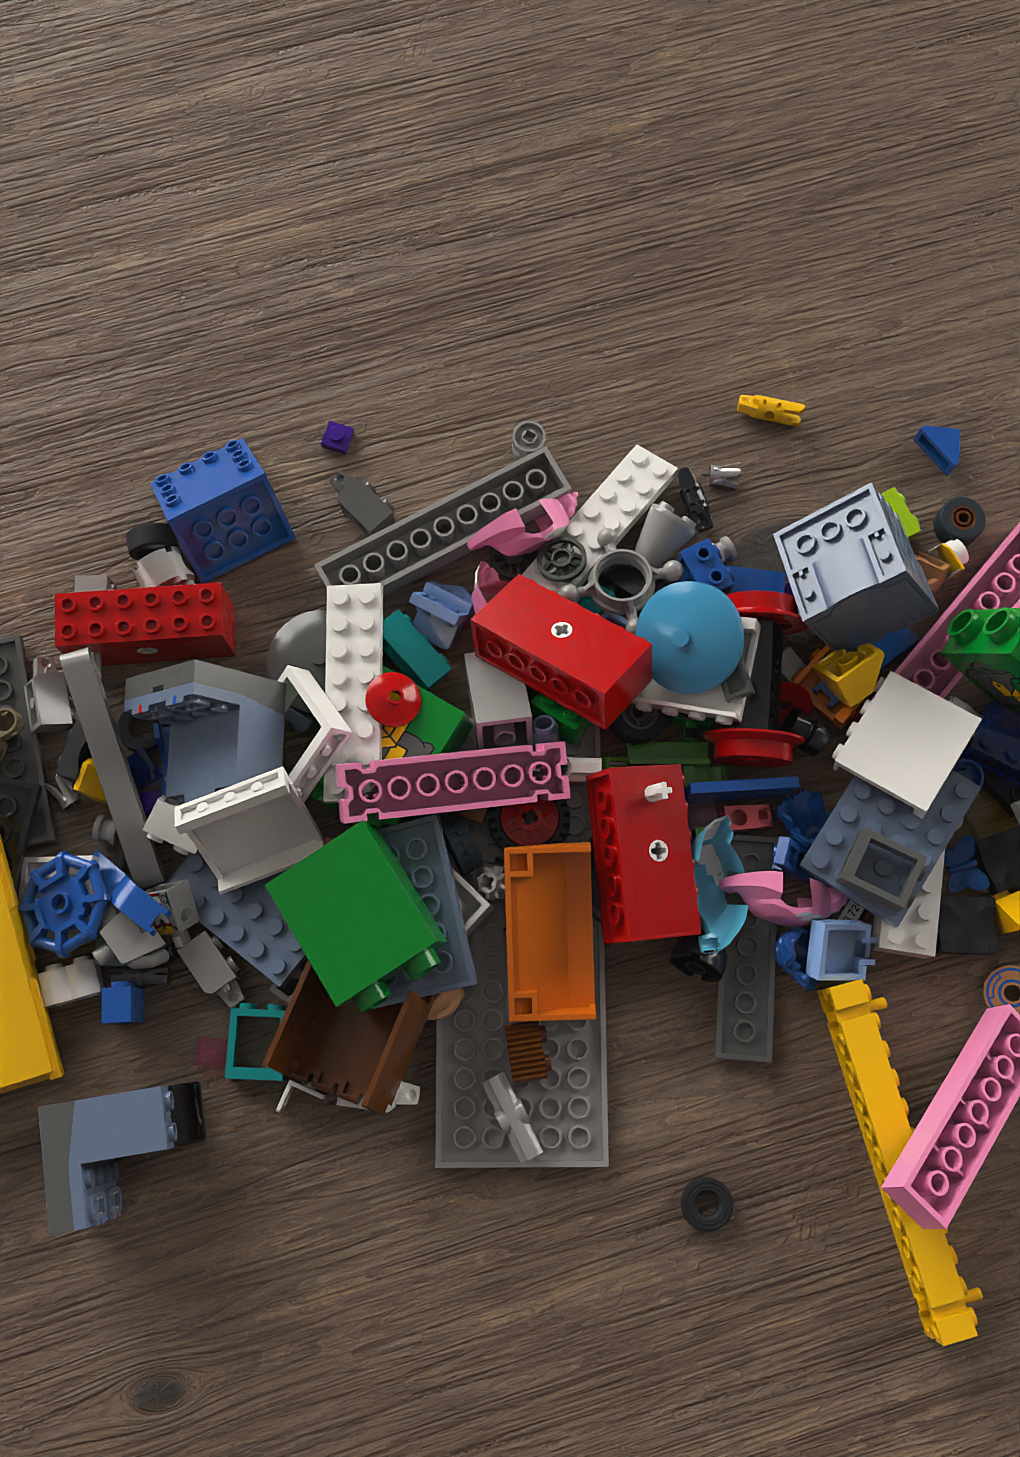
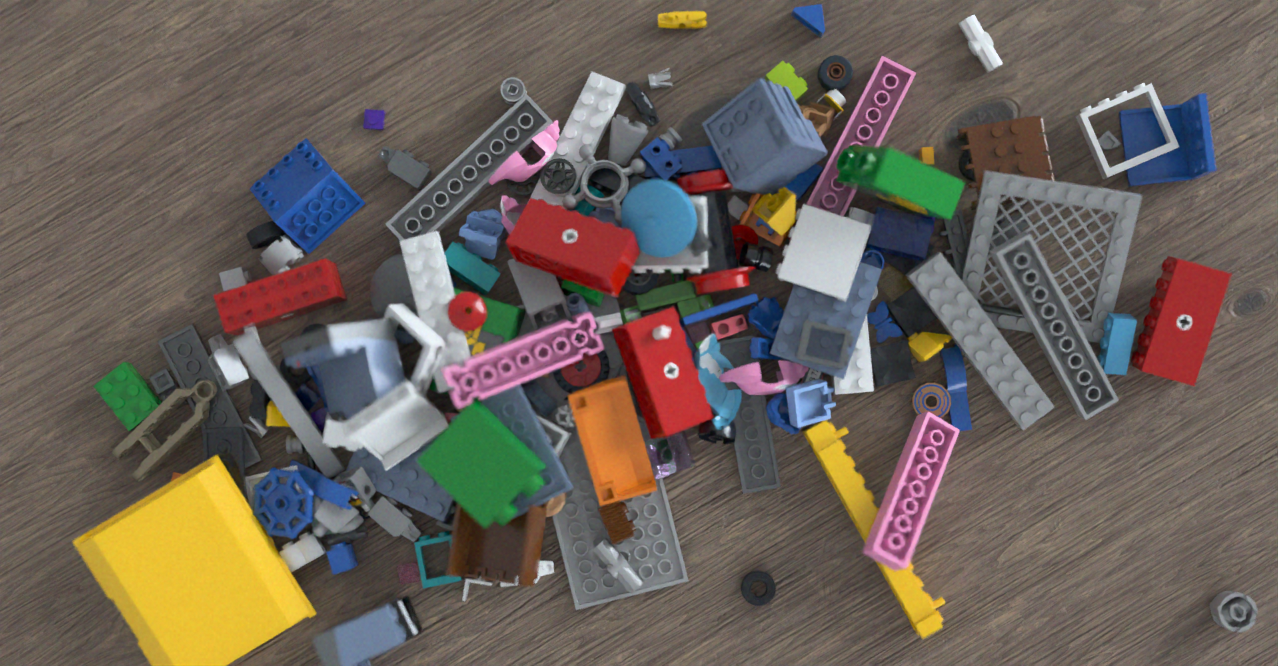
camera: 10 degrees left, 10 degrees up
(624, 973) = (669, 454): none -> clear purple slope

